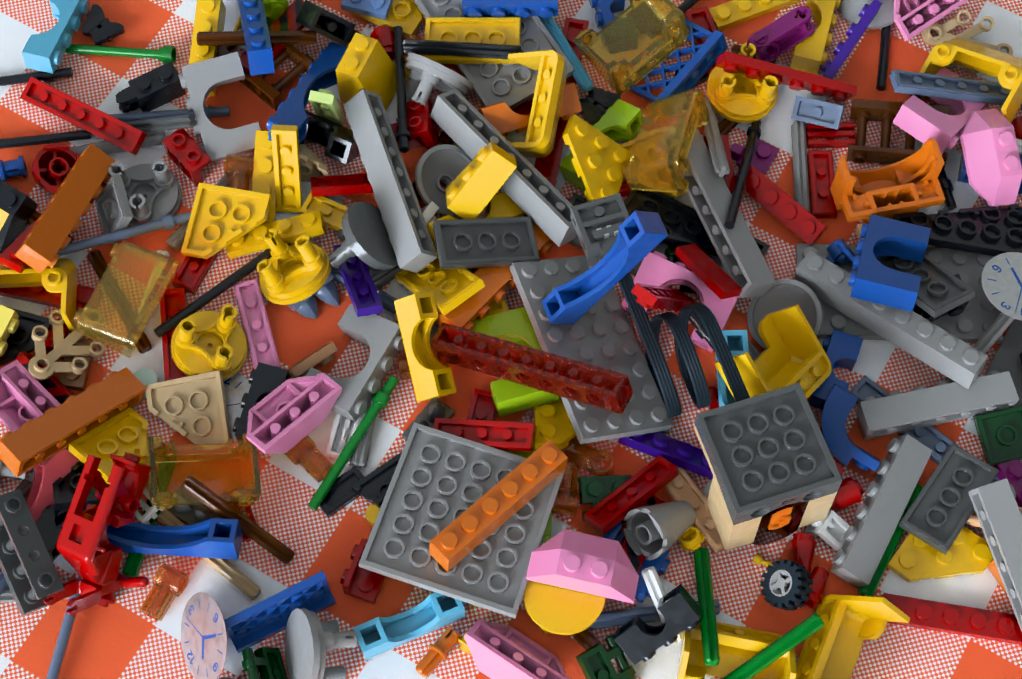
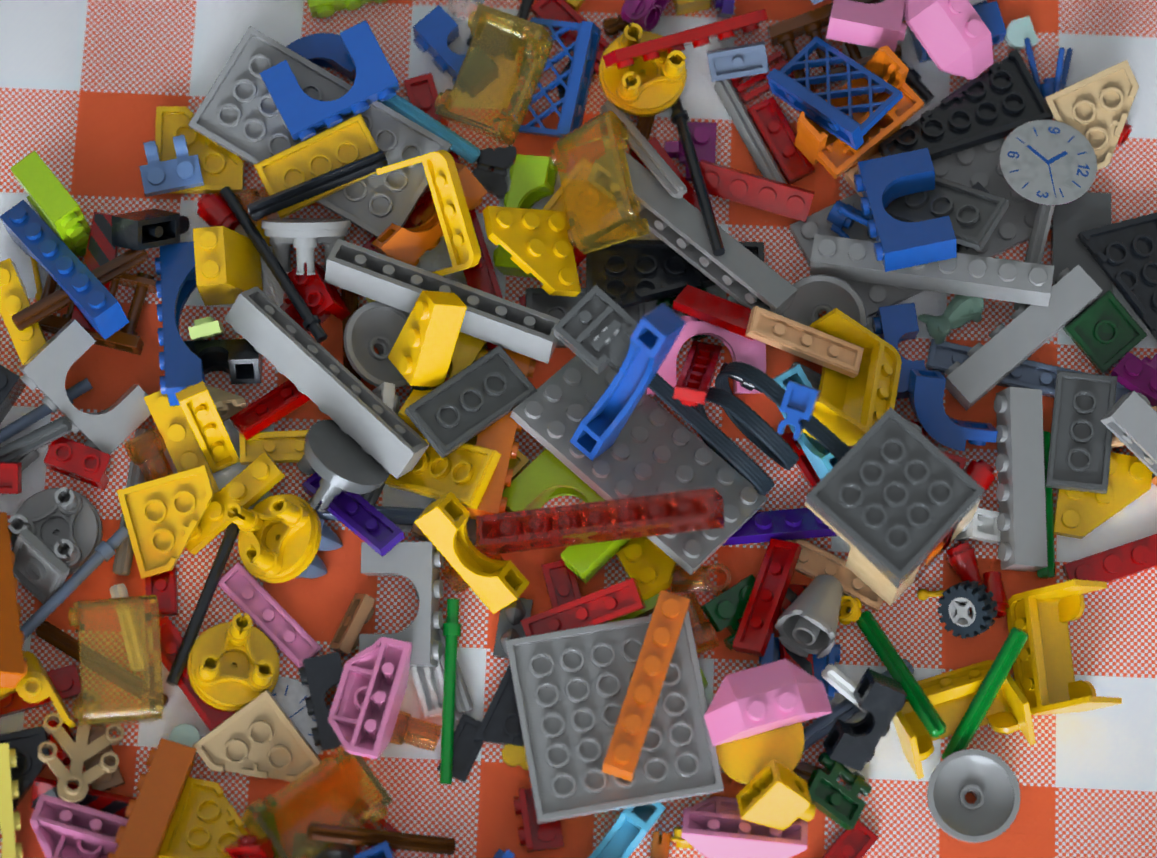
camera: 30 degrees left, 10 degrees up
(554, 645) = (775, 798): none -> yellow torso
(727, 346) = (798, 404): none -> blue plate
(761, 320) = (804, 341): none -> light nougat tile
(861, 165) = (814, 104): none -> blue fence
(893, 364) = (958, 313): none -> sand green animal

